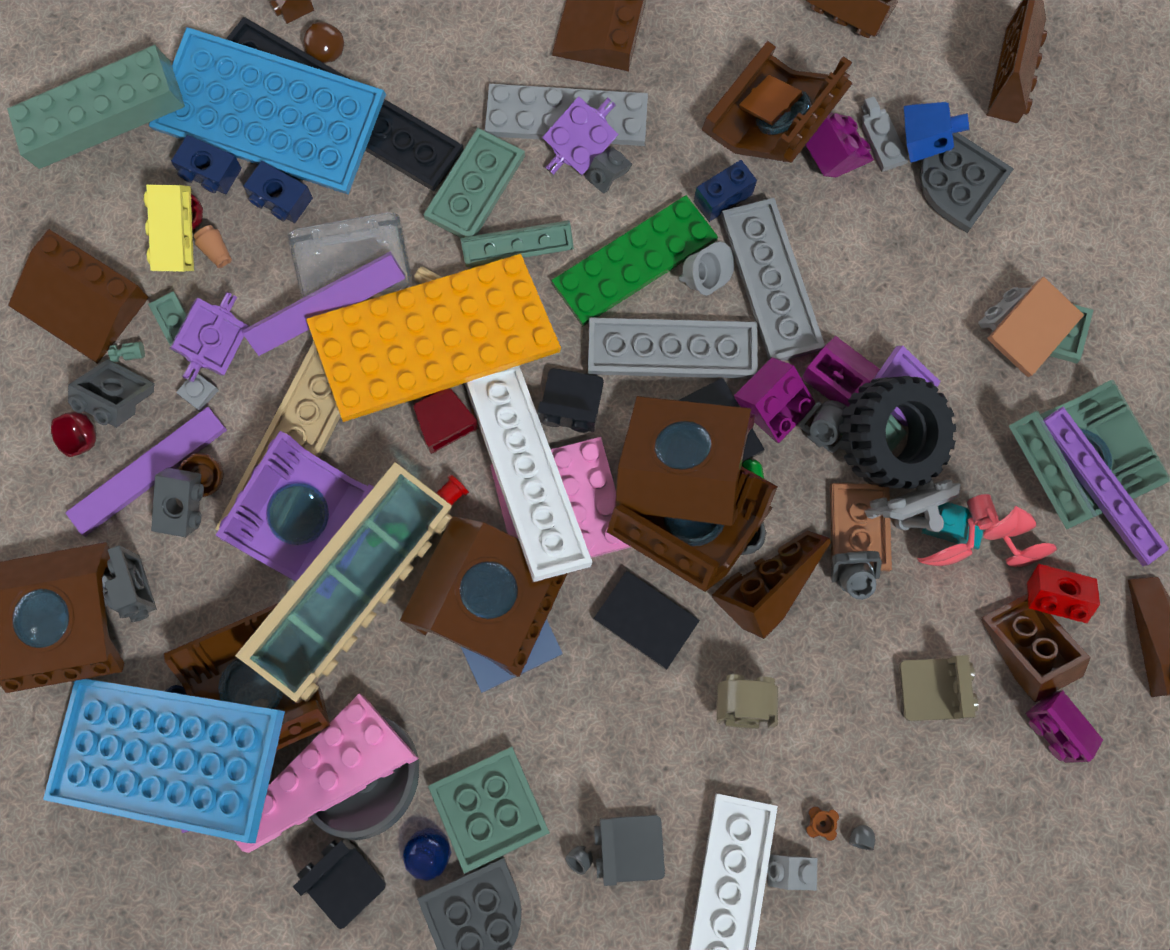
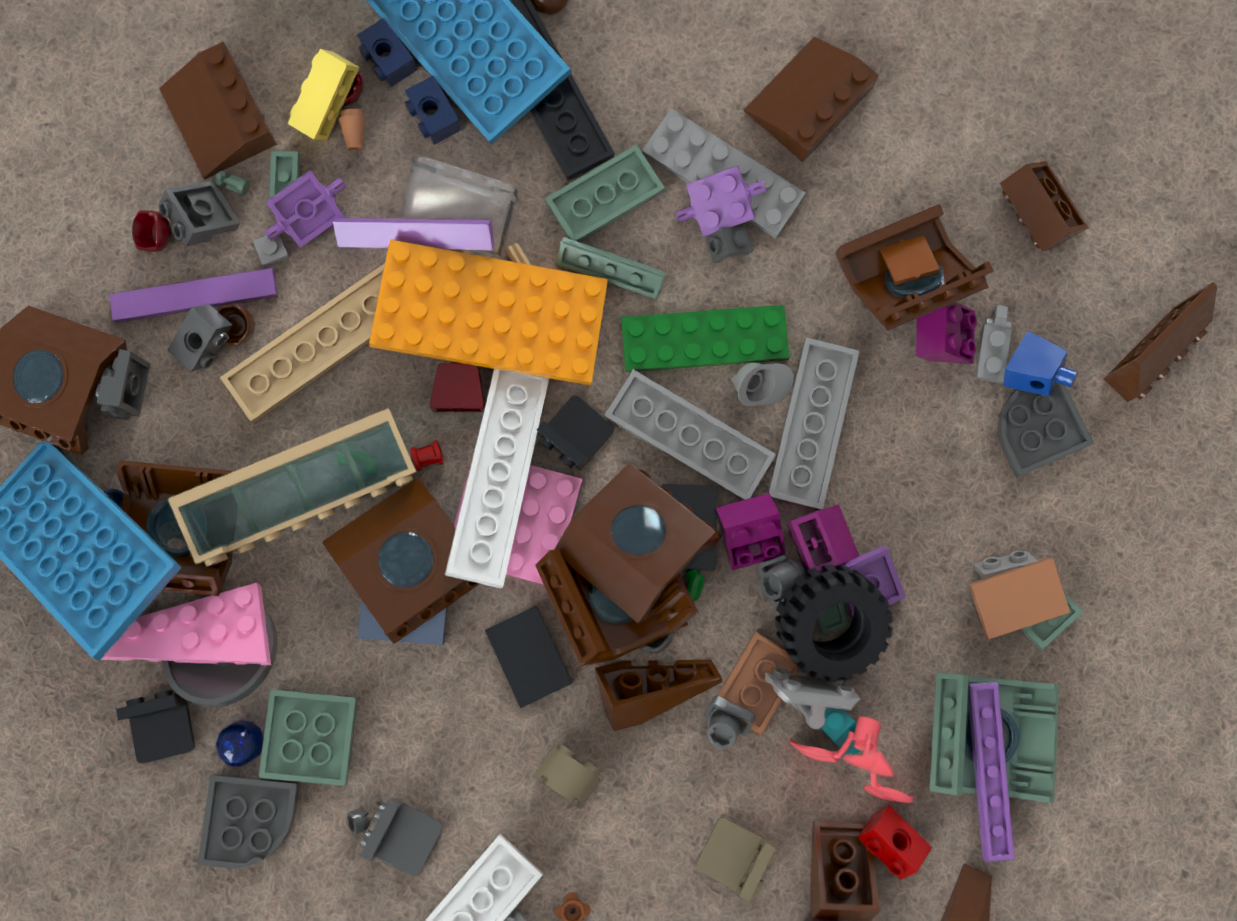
camera: 30 degrees right, 5 degrees up
(290, 508) = (288, 396): medium lavender panel -> none
(725, 190) = (819, 320): dark blue brick -> none

